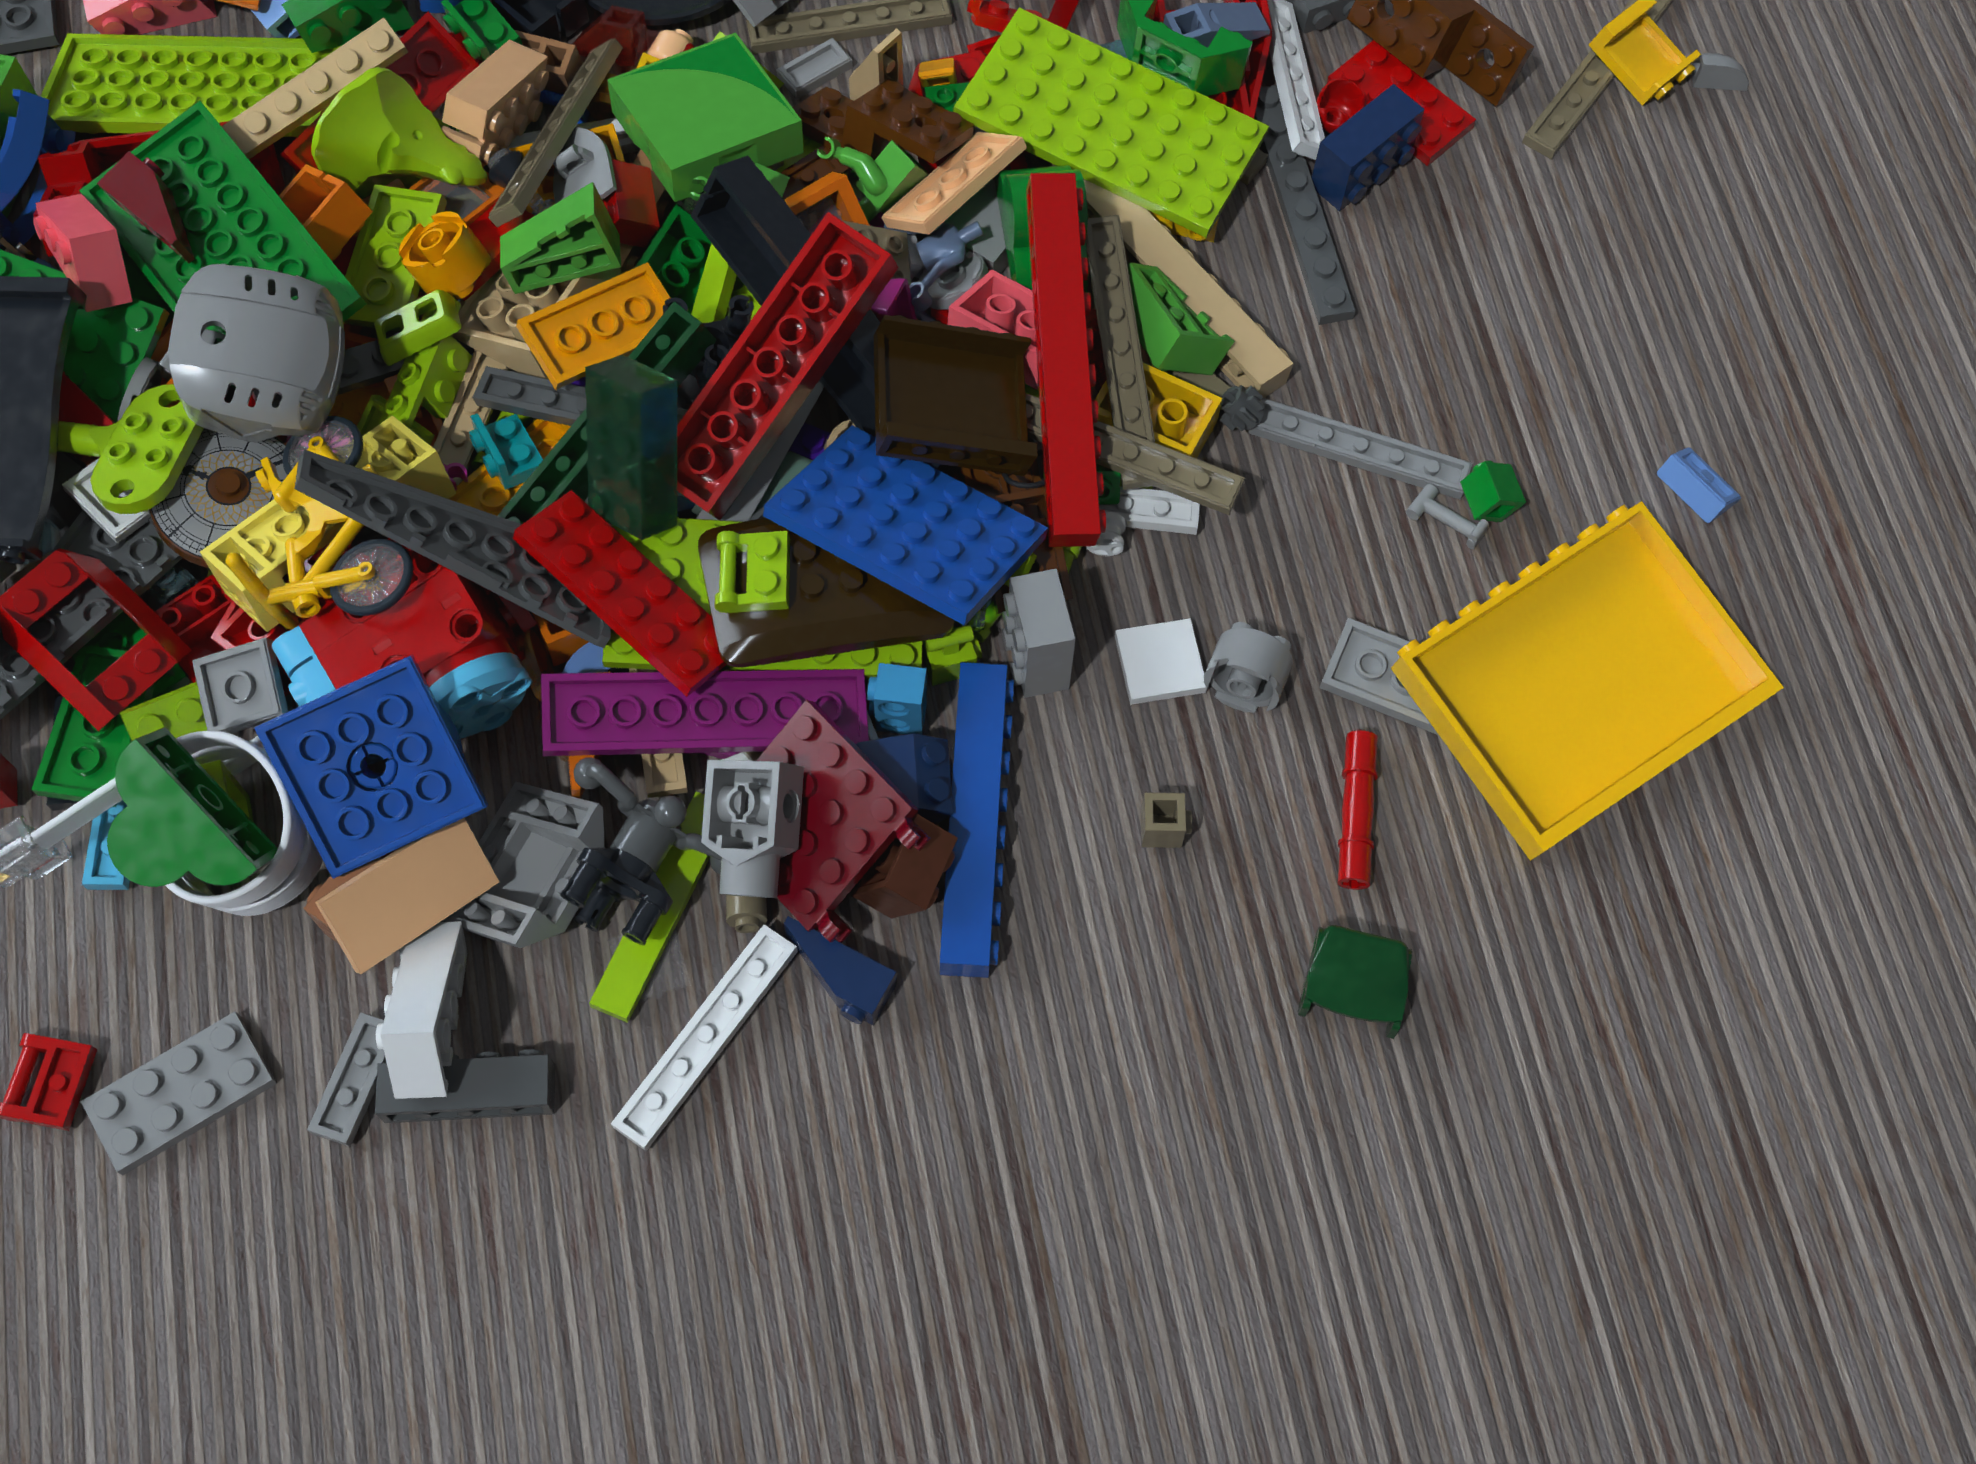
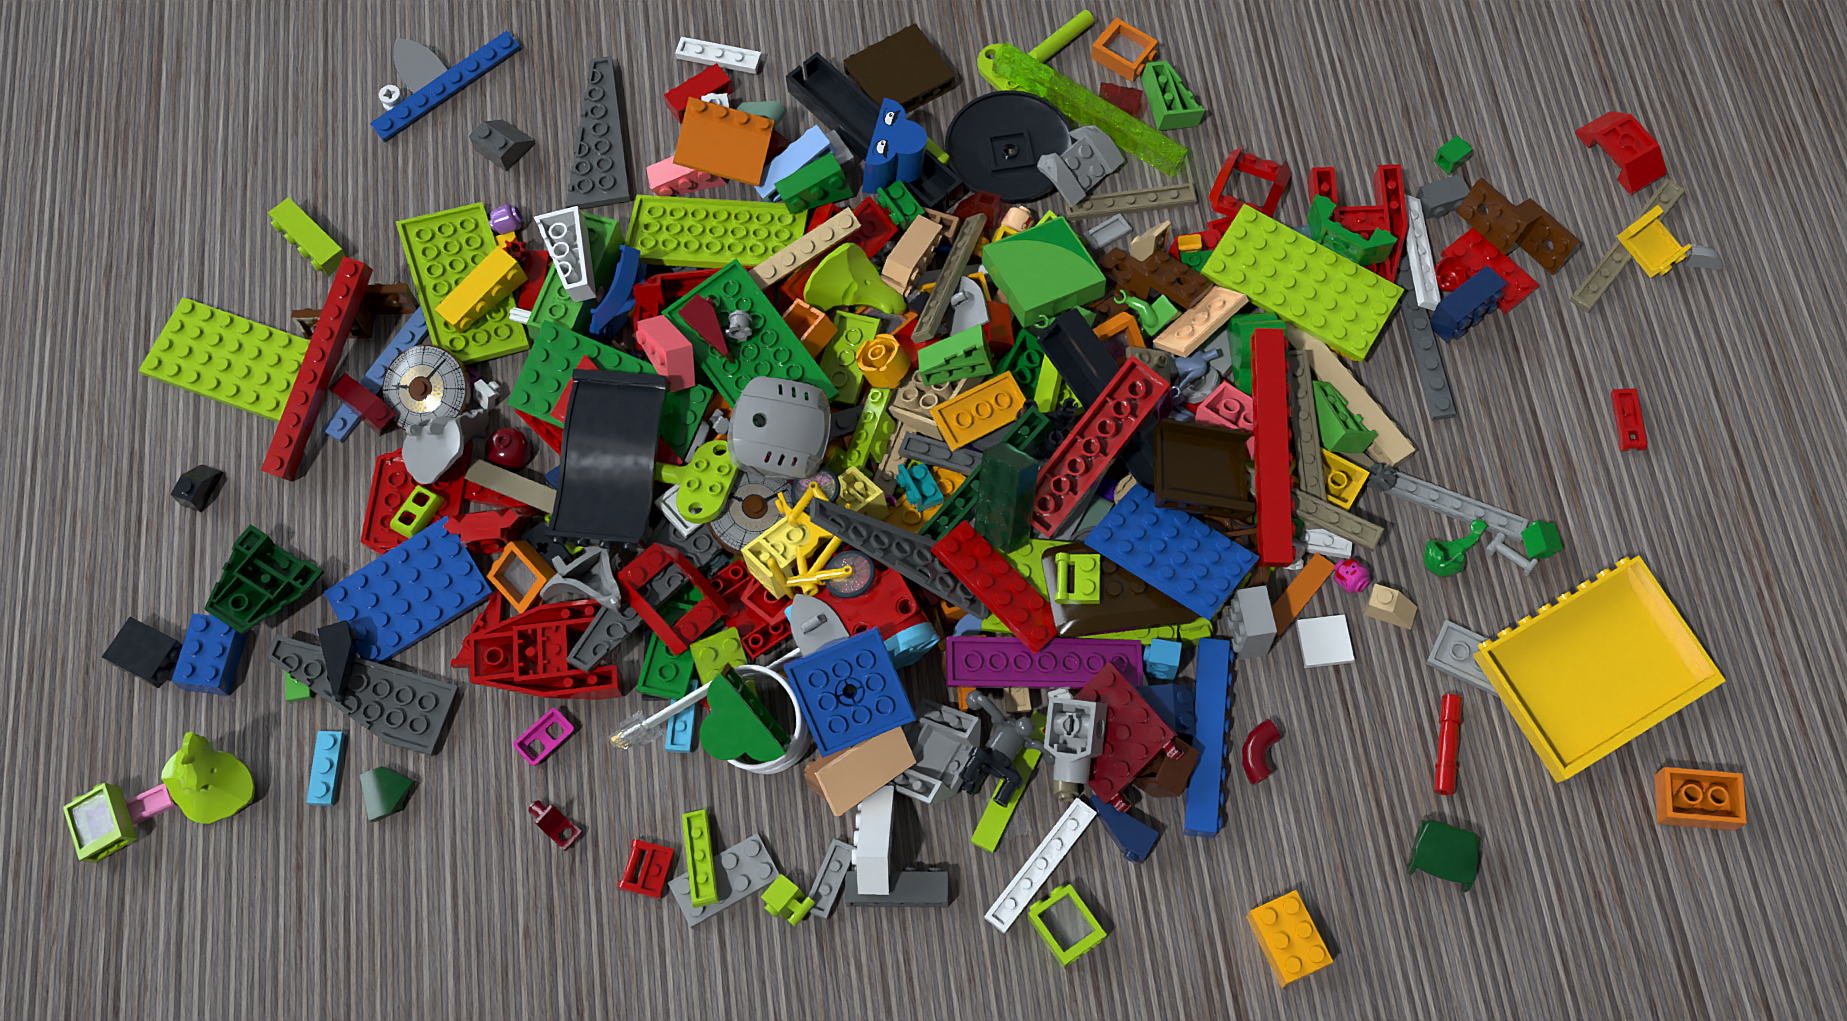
camera: 10 degrees right, 0 degrees up
(134, 1058) = (700, 858): none -> lime tile
(199, 200) = (739, 325): none -> light grey brick
(240, 687) = (761, 633): light grey tile -> none
(278, 1117) = (784, 898): none -> lime brick
(316, 659) = (814, 623): none -> light grey shield
(417, 334) = (866, 412): lime piece -> none
(746, 1130) = (1066, 925): none -> window
(1052, 836) = (1255, 751): none -> dark red cylinder
(1110, 1129) = (1289, 939): none -> light orange brick
(1119, 590) = (1300, 592): none -> orange tile
(1164, 820) = (1326, 745): dark tan brick -> none
(1199, 558) = (1351, 575): none -> dark pink head
(1205, 19) = (1366, 220): sand blue slope -> none
(1249, 668) = (1382, 650): light grey brick -> none
(1262, 602) = (1390, 607): none -> tan slope
(1349, 525) = (1448, 557): none -> green hair
(1618, 309) = (1628, 419): none -> red plate
(1698, 484) = (1676, 540): medium blue slope -> none
(1753, 870) = (1700, 798): none -> orange brick

